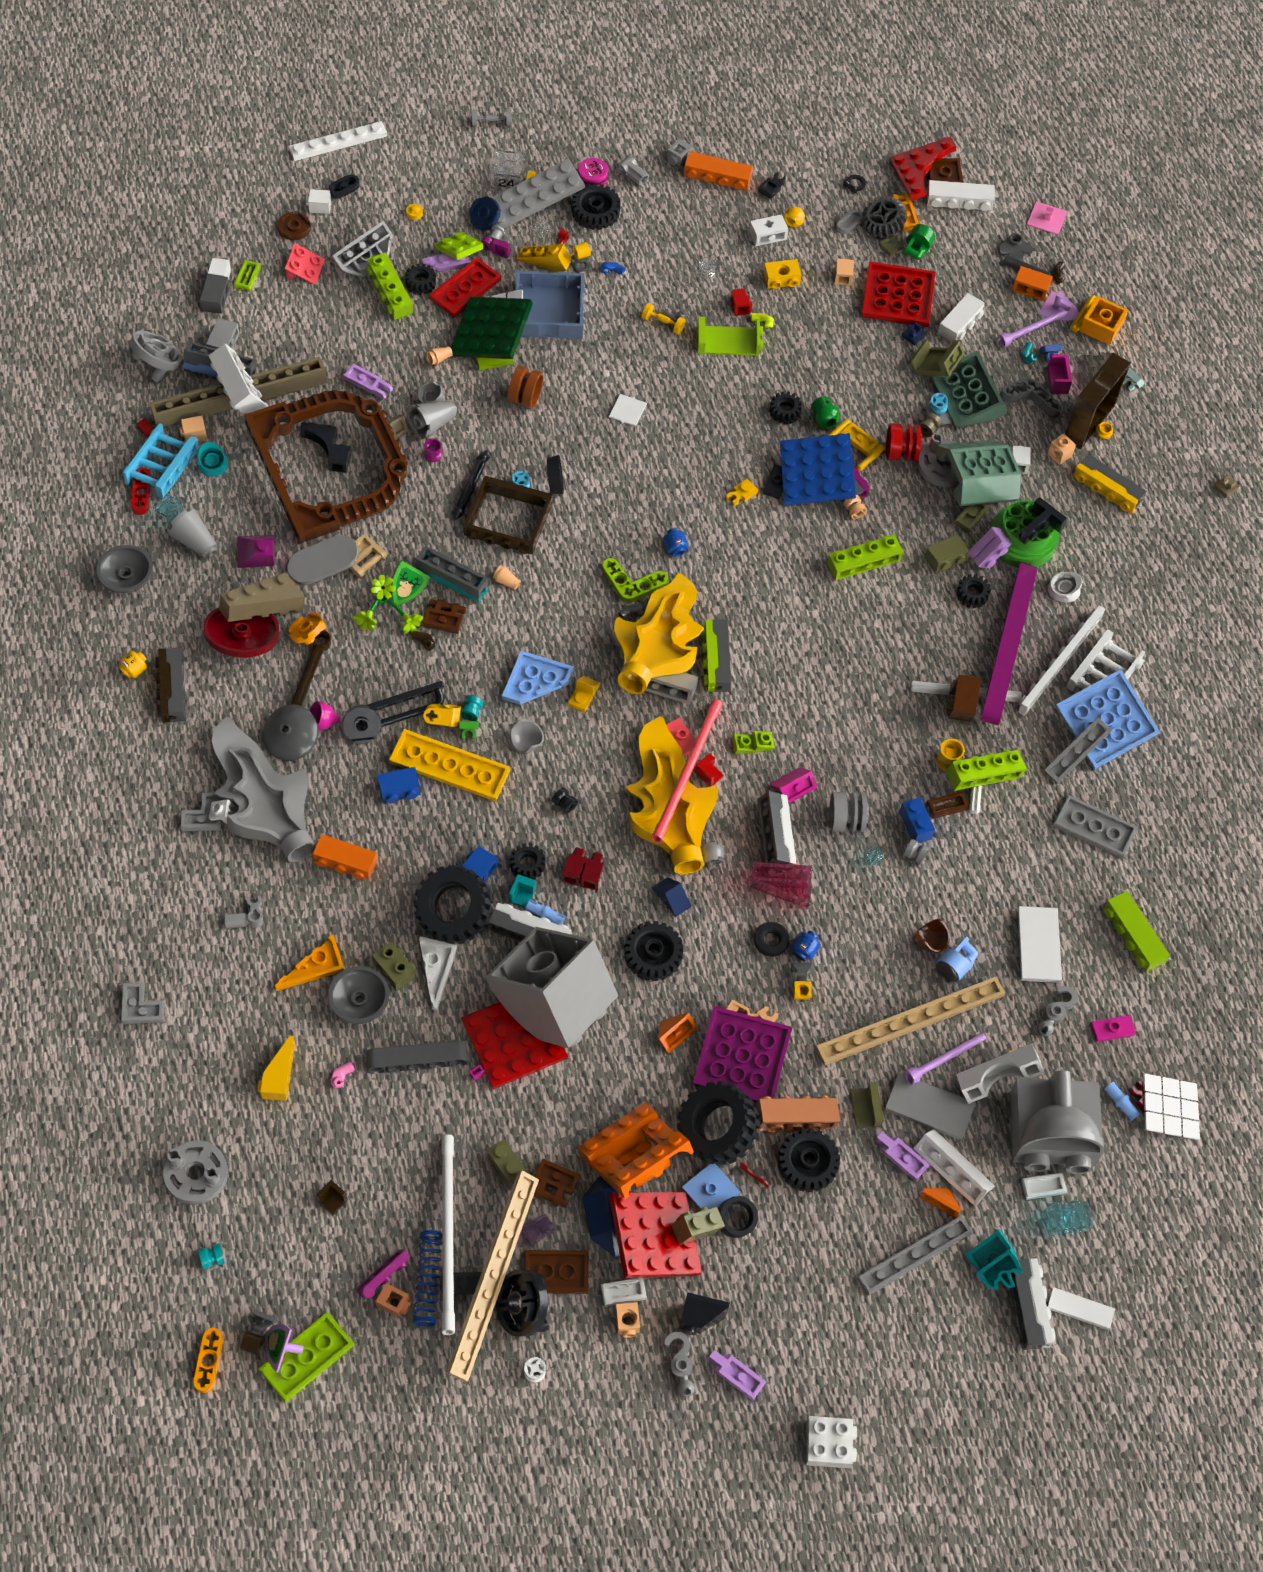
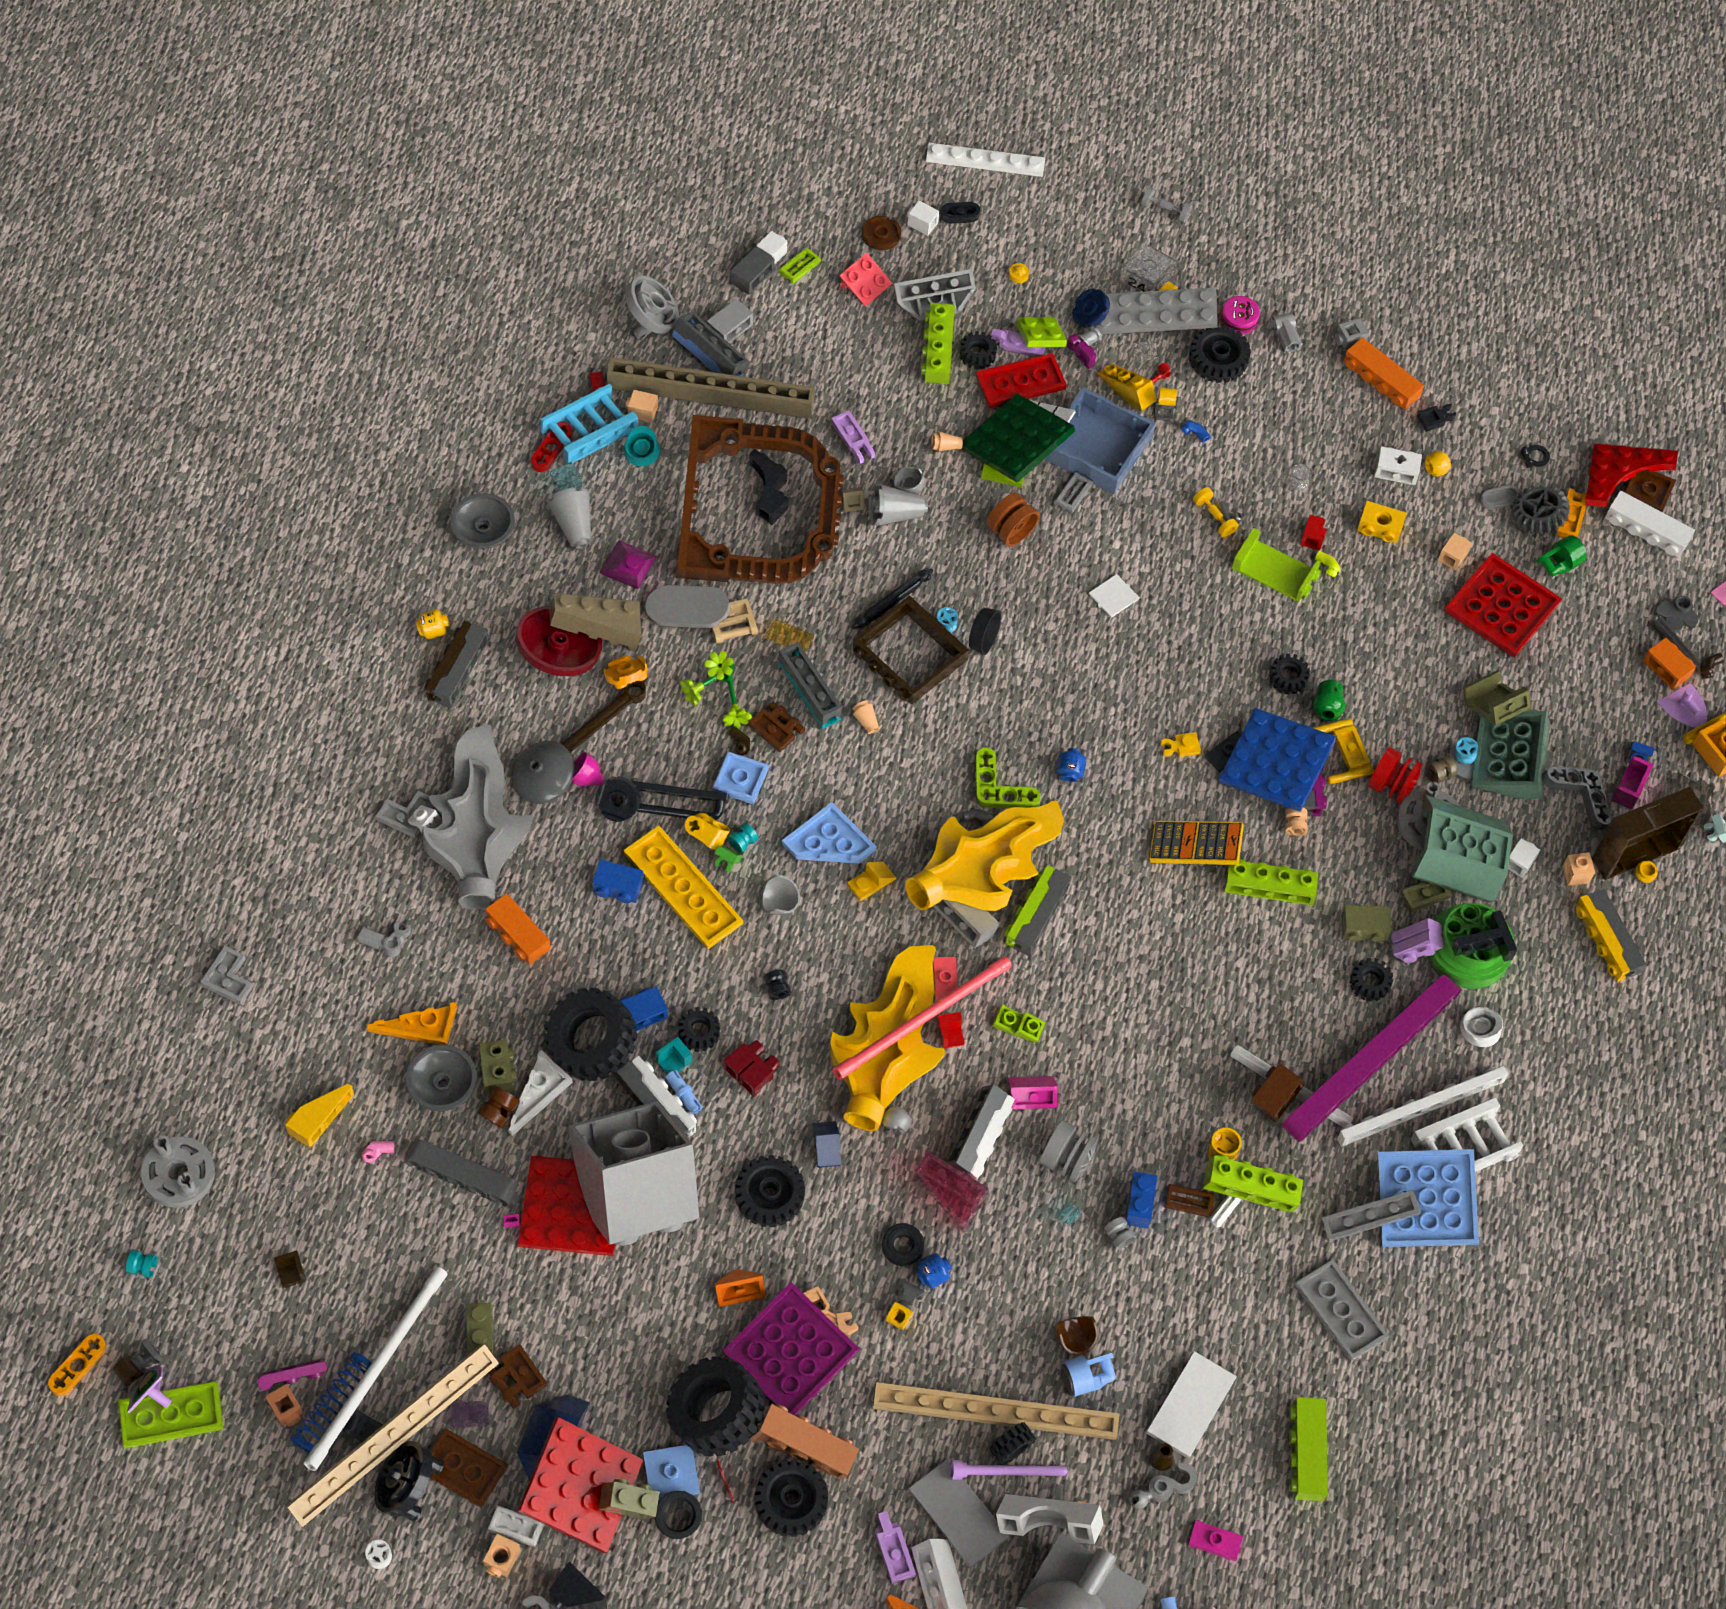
camera: 30 degrees right, 0 degrees up
(236, 380) = (709, 375): white wedge -> none
(408, 583) = (758, 672): shield -> none
(410, 546) = (788, 635): none -> clear yellow tile
(415, 993) = (498, 1106): none -> reddish brown wheel
(432, 450) = (874, 542): magenta wheel -> none
(441, 665) = (740, 777): none -> light blue plate
(552, 361) = (1065, 505): none -> light grey tile
(625, 1156) = (619, 1383): orange piece -> none
(798, 554) = (1196, 842): none -> tile
(867, 1106) = (889, 1476): olive panel -> none
(891, 245) = (1531, 545): olive tile -> none
(913, 334) = (1491, 658): dark blue tile -> none
(939, 1036) = (1012, 1443): none -> black tyre
(961, 318) = (1558, 665): white brick -> none
(1006, 338) = (1597, 713): lavender piece -> none
(1027, 355) = (1611, 740): teal arm -> none
(1043, 990) = (1162, 1461): none -> dark brown cone

